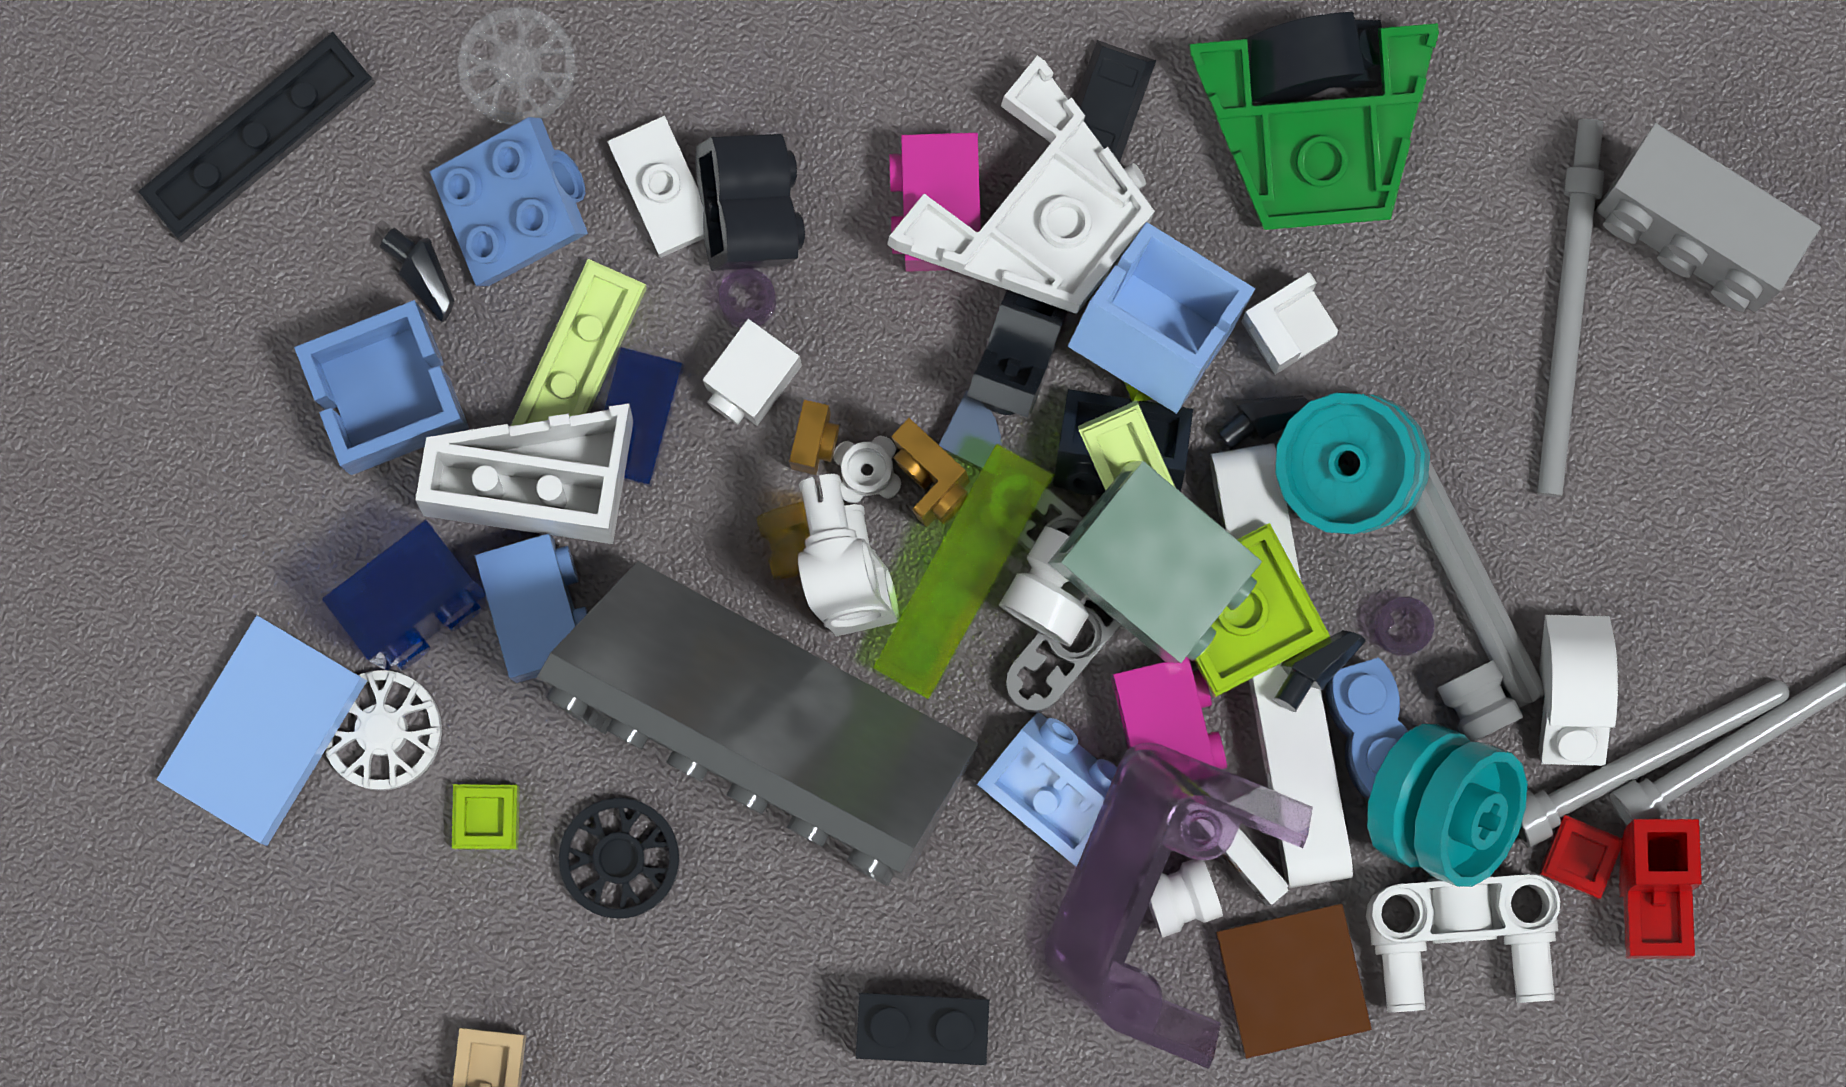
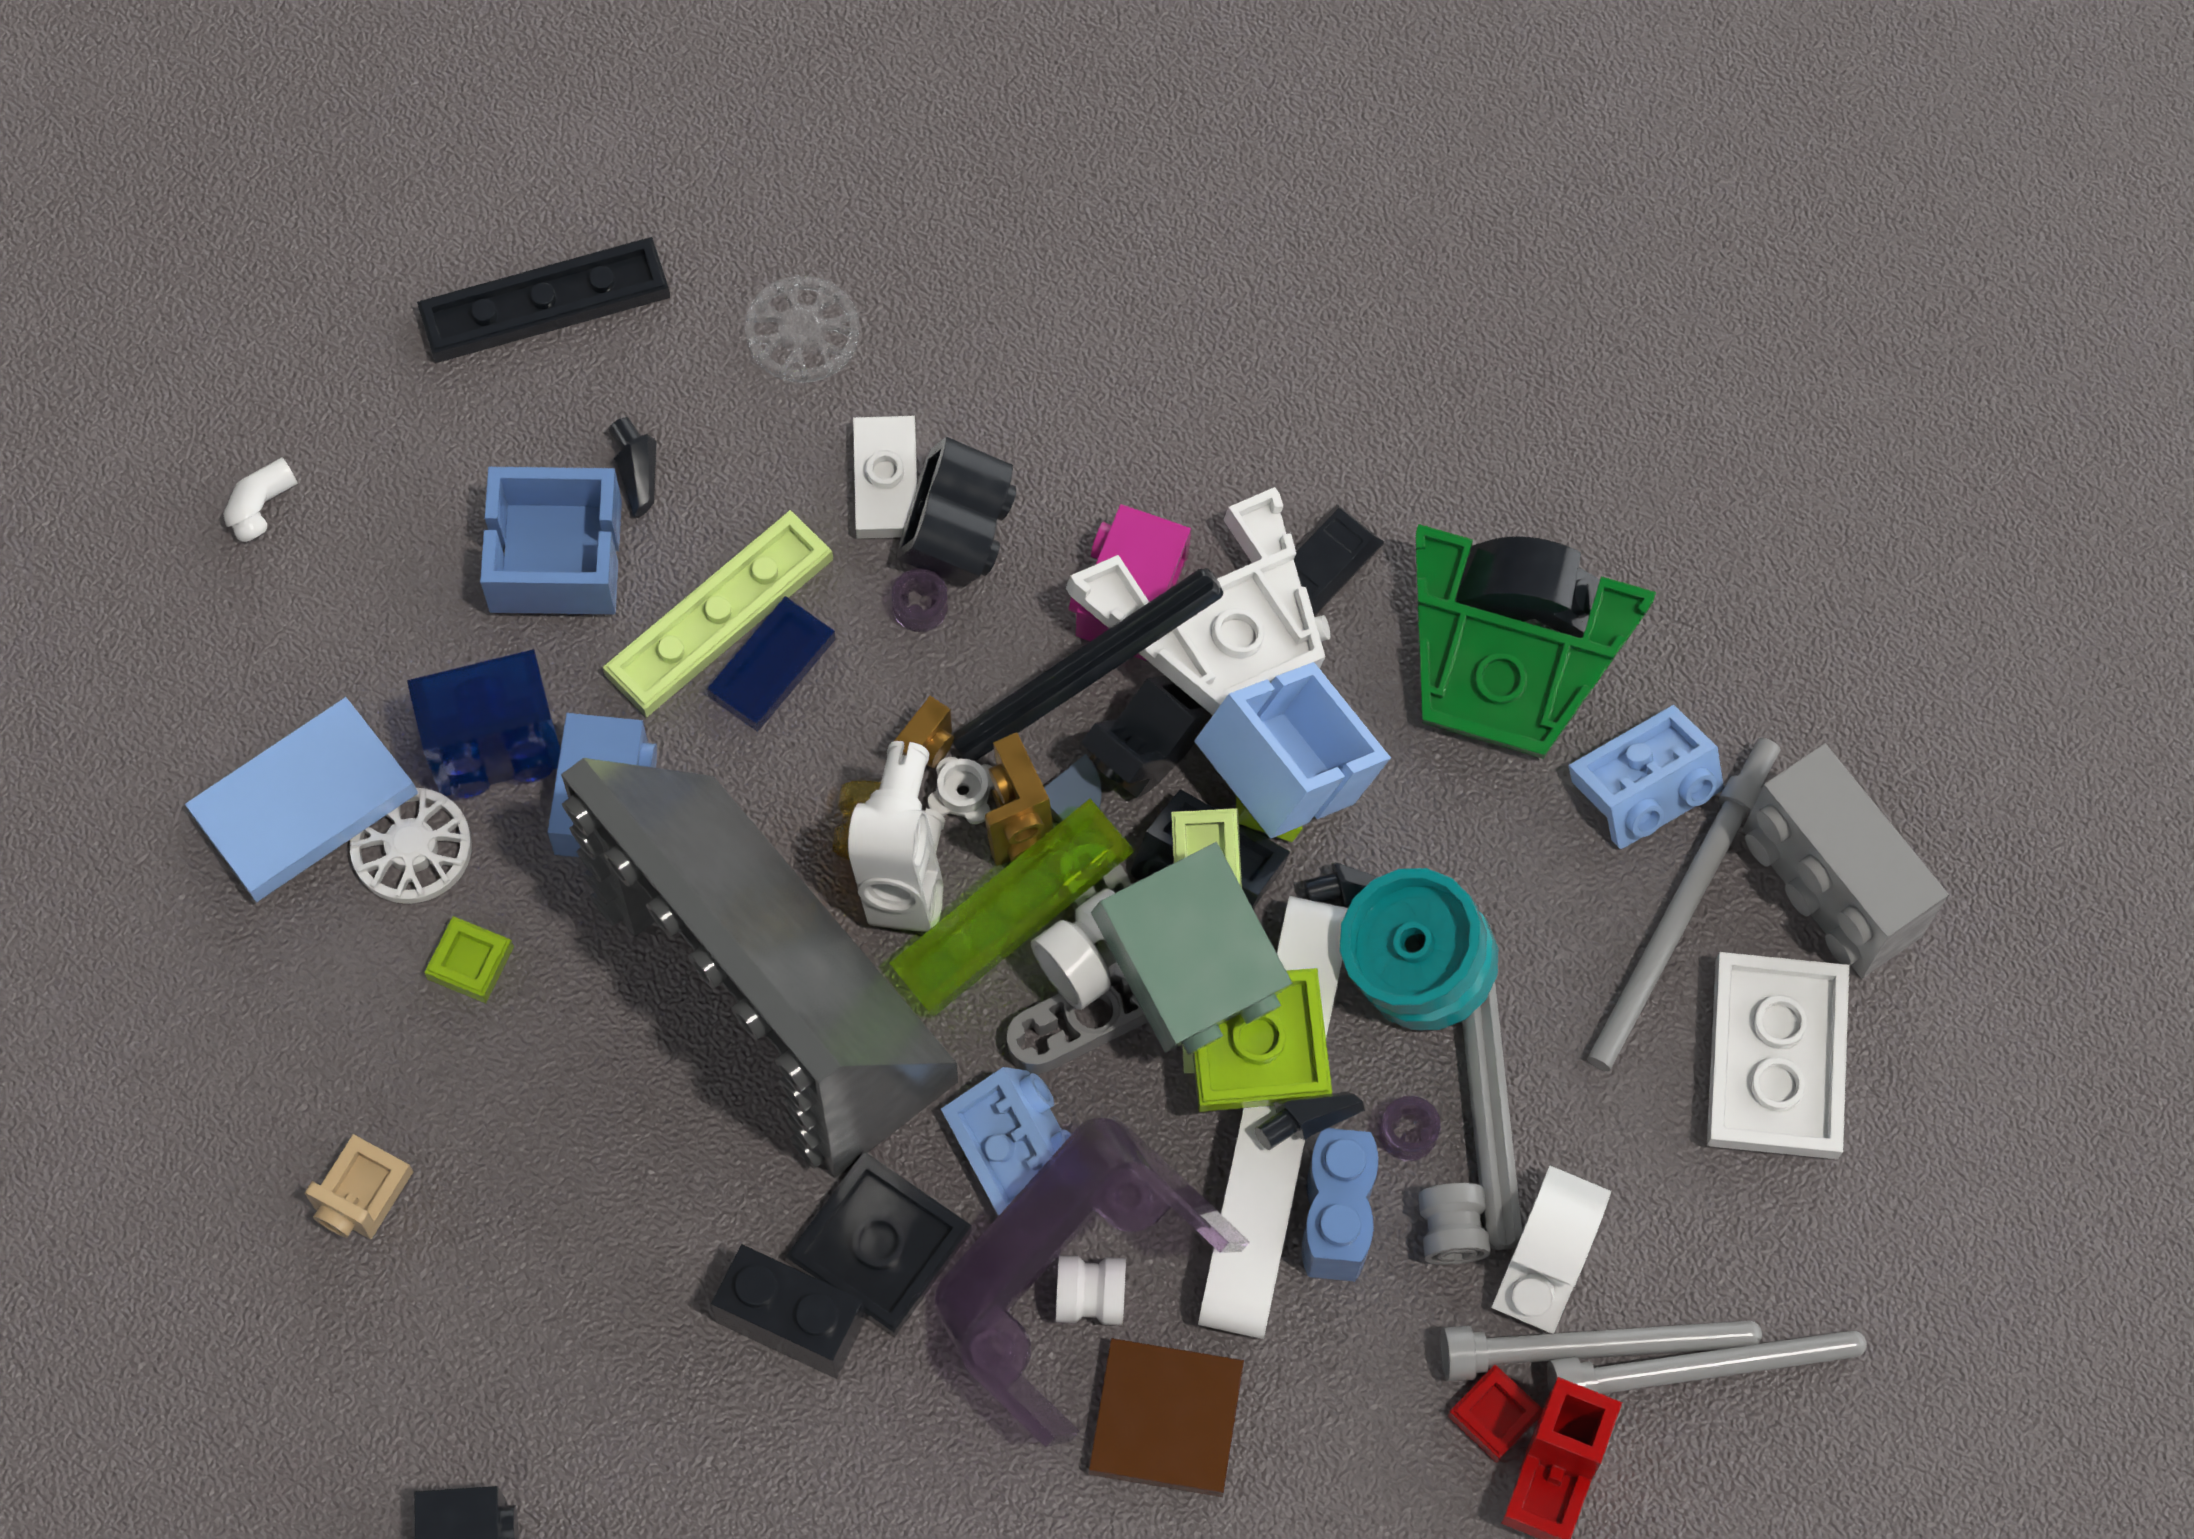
camera: 15 degrees right, 15 degrees down
(72, 453) = (251, 494): none -> white arm
(511, 200) = (743, 431): medium blue plate -> none
(532, 476) = (650, 661): white wedge -> none
(619, 858) = (575, 1045): black wheel -> none
(750, 375) = (892, 662): white brick -> none
(941, 313) = (1089, 663): none -> black axle
(972, 928) = (880, 1242): none -> black tile
(1165, 708) = (1153, 1102): dark pink brick -> none
(1255, 869) = (1167, 1279): white tile -> none
(1289, 324) = (1412, 811): white panel -> none
(1447, 804) = (1381, 1293): teal wheel -> none
(1462, 915) = (1358, 1415): white piece -> none
(1492, 197) = (1649, 775): none -> light blue bracket
(1709, 422) = (1778, 1055): none -> white plate

